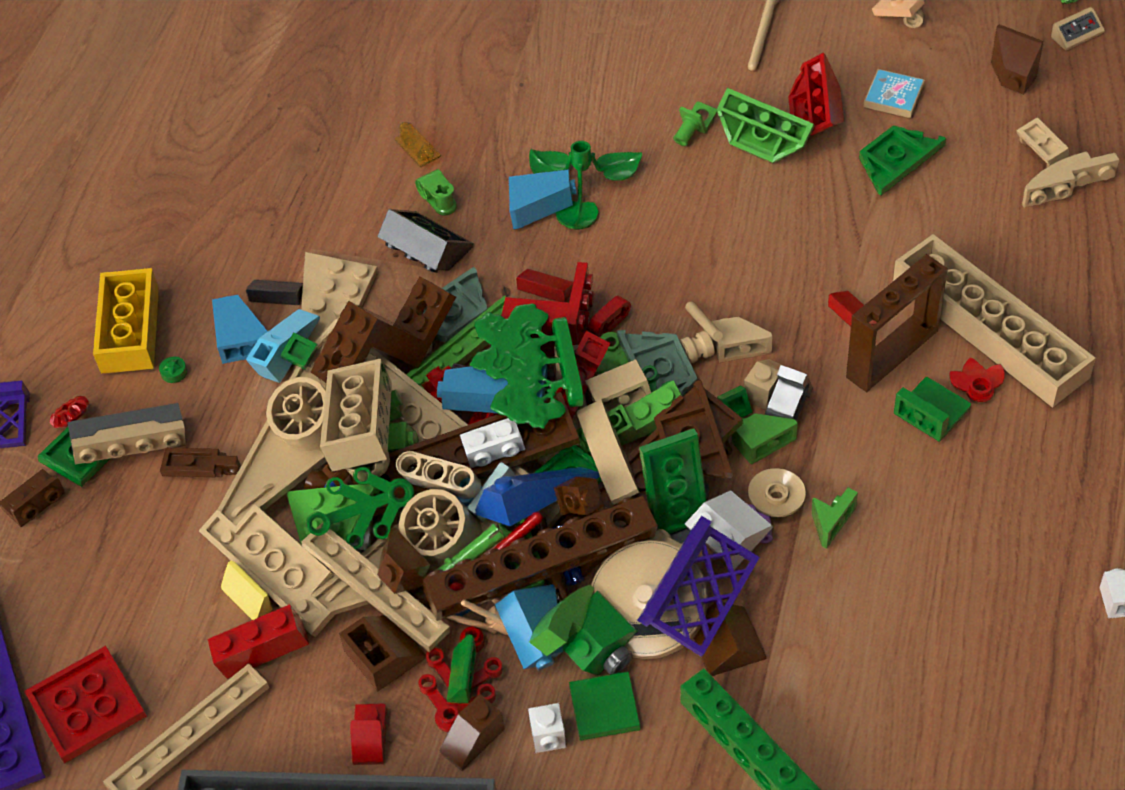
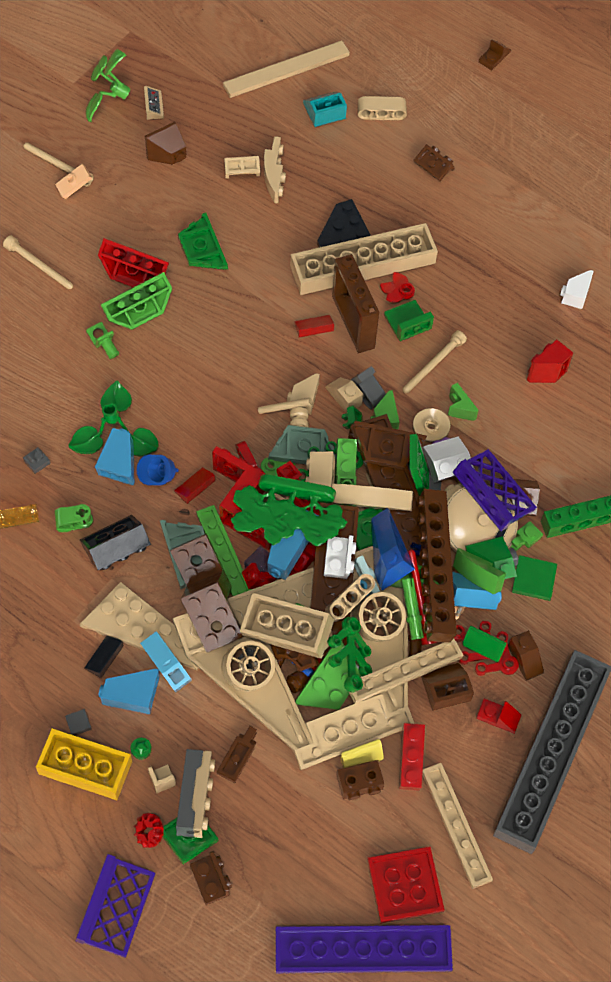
camera: 75 degrees left, 10 degrees up
(136, 395) = (161, 778): none -> tan panel
(183, 301) = (78, 722): none -> dark grey tile
(209, 600) = (360, 780): none -> reddish brown brick
(299, 351) = (186, 652): green tile -> none
(401, 564) = (399, 647): reddish brown slope -> none
(498, 132) = (36, 460): none -> dark grey tile
(541, 239) = (155, 470): none -> blue piece
(547, 728) = (542, 612): white brick -> none
(579, 496) = (408, 522): reddish brown brick -> none
(665, 674) = (527, 536): none -> bright green plate
(894, 93) = (145, 221): tile -> none
(937, 475) = (457, 339): none -> tan piece
(963, 594) = (550, 364): none -> red slope
(1038, 284) = (343, 225): none -> black plate

